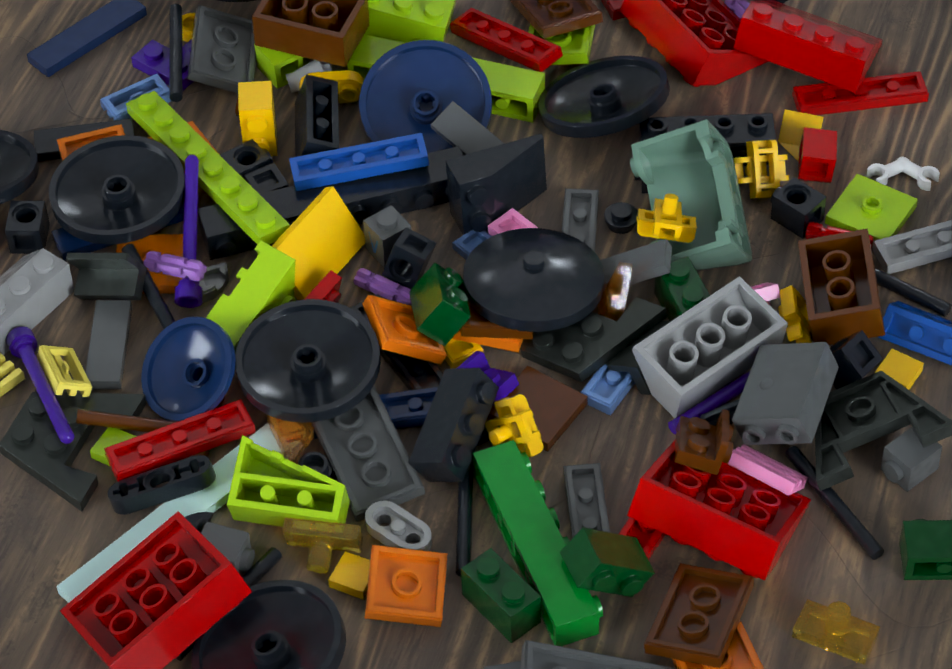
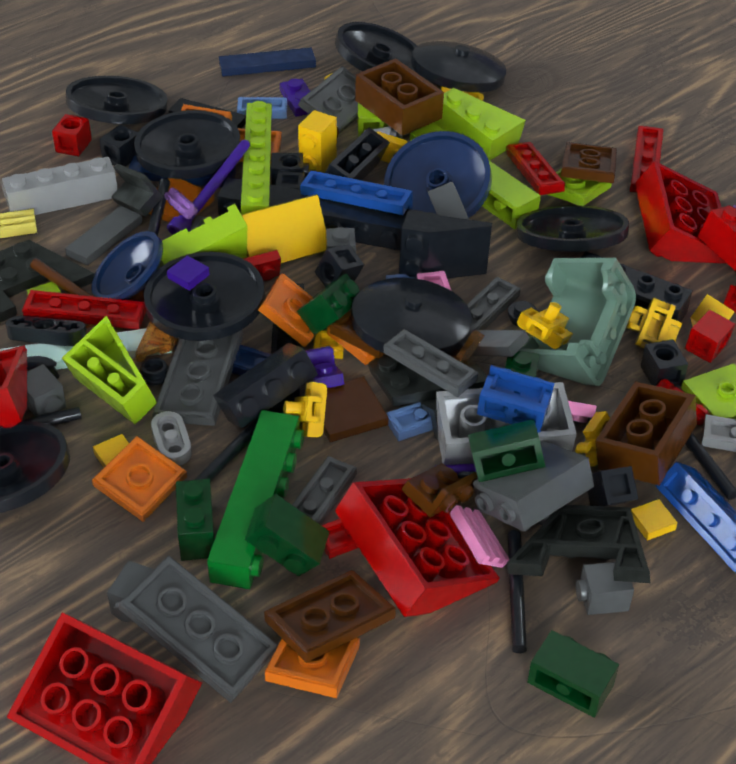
camera: 30 degrees right, 5 degrees down
(23, 345) = (50, 211): dark purple piece -> none
(57, 370) = (51, 243): light yellow tile -> none
(175, 53) = (300, 92): black bar -> none
(277, 344) = (188, 272): none -> dark purple tile
(322, 539) = (112, 417): clear yellow tile -> none
(382, 286) = (309, 278): medium lavender axle -> none
(605, 319) = (431, 363): none -> dark grey tile
(717, 316) = (514, 397): none -> blue hinge
(746, 373) = (506, 450): none -> dark green brick
(836, 630) = (433, 690): clear yellow tile -> none

